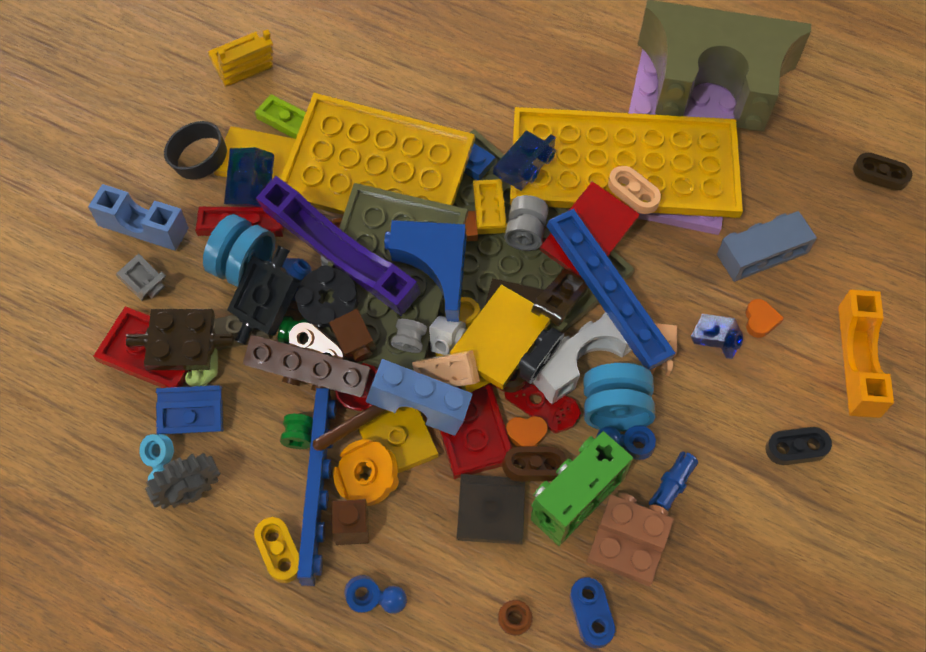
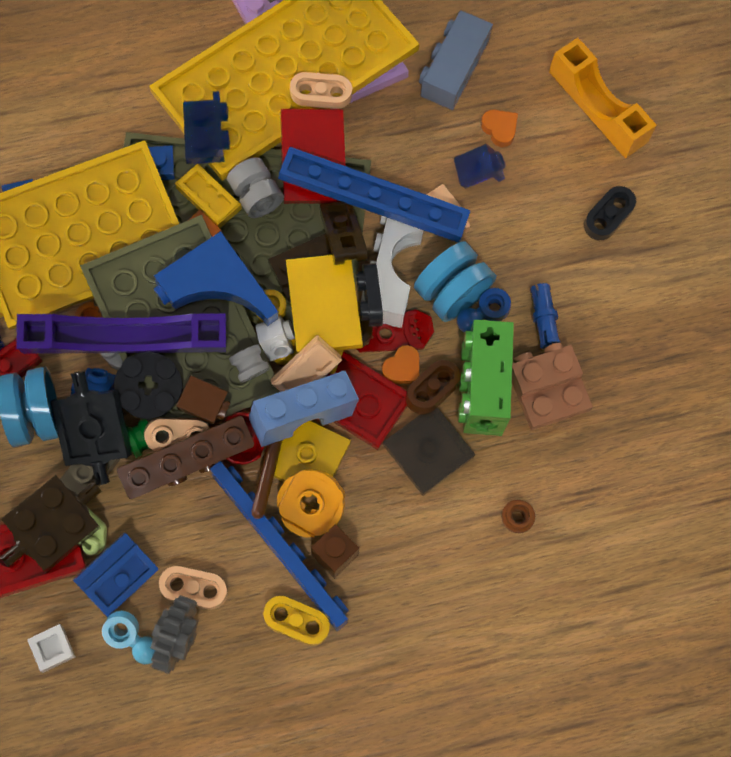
camera: 45 degrees left, 10 degrees up
(102, 424) = (51, 648): none -> white plate
(233, 465) = (194, 586): none -> light nougat plate
(297, 431) = (223, 516): green wheel -> none
(391, 599) = (416, 582): blue plate -> none
(592, 611) = (567, 466): blue plate -> none

